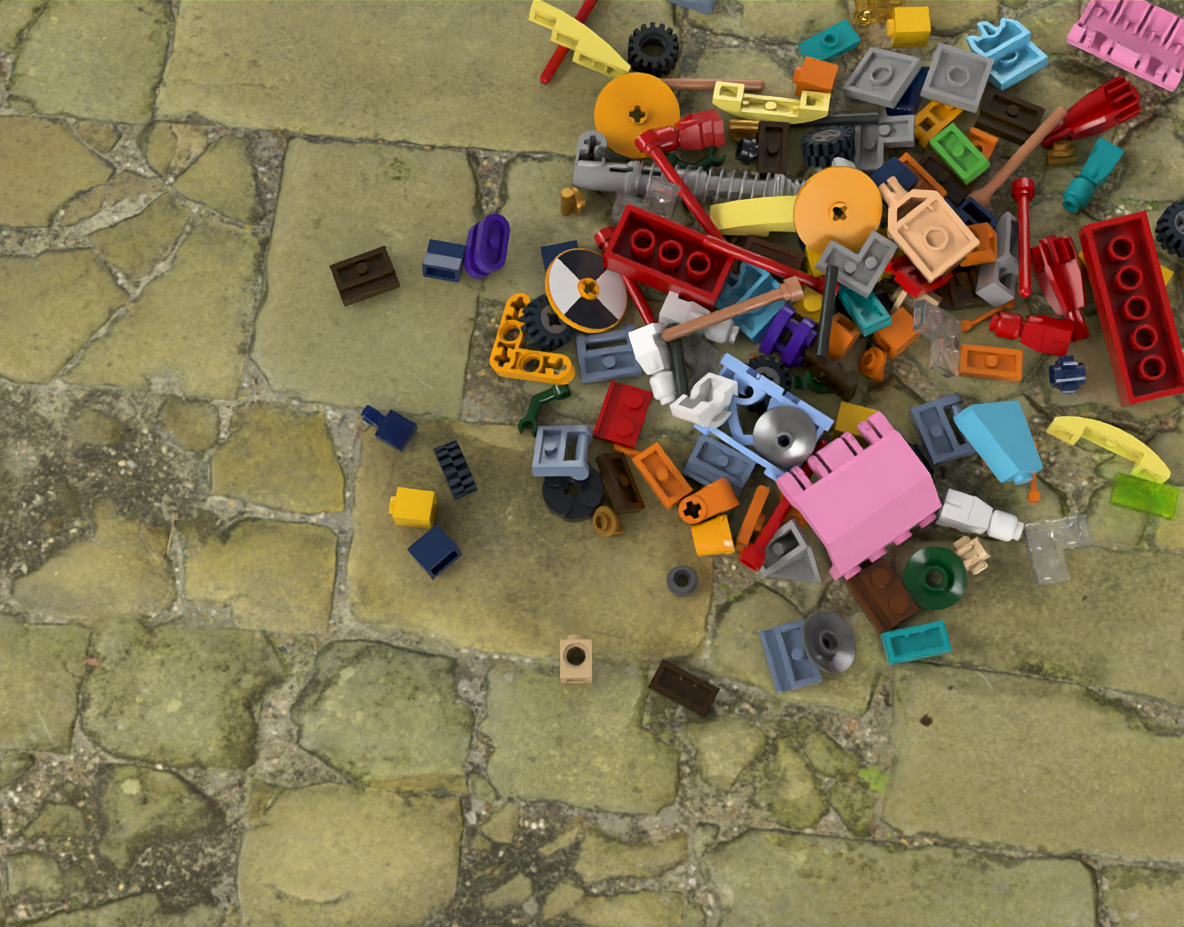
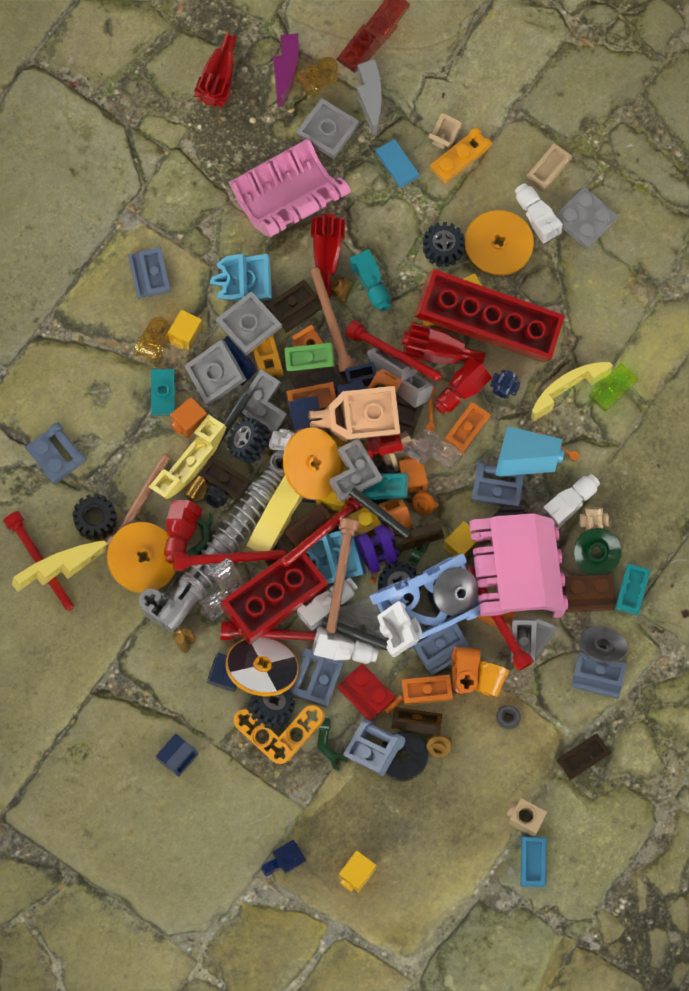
camera: 65 degrees left, 0 degrees up
(364, 276) = (155, 818): dark brown plate -> none
(434, 551) = (396, 874): dark blue piece -> none
(455, 469) = (347, 827): black wheel -> none
(486, 246) = (187, 718): dark purple brick -> none
(531, 696) = (533, 862): none -> dark azure tile
(754, 518) = (491, 645): orange plate -> none
(1046, 544) = (611, 467): clear plate -> none

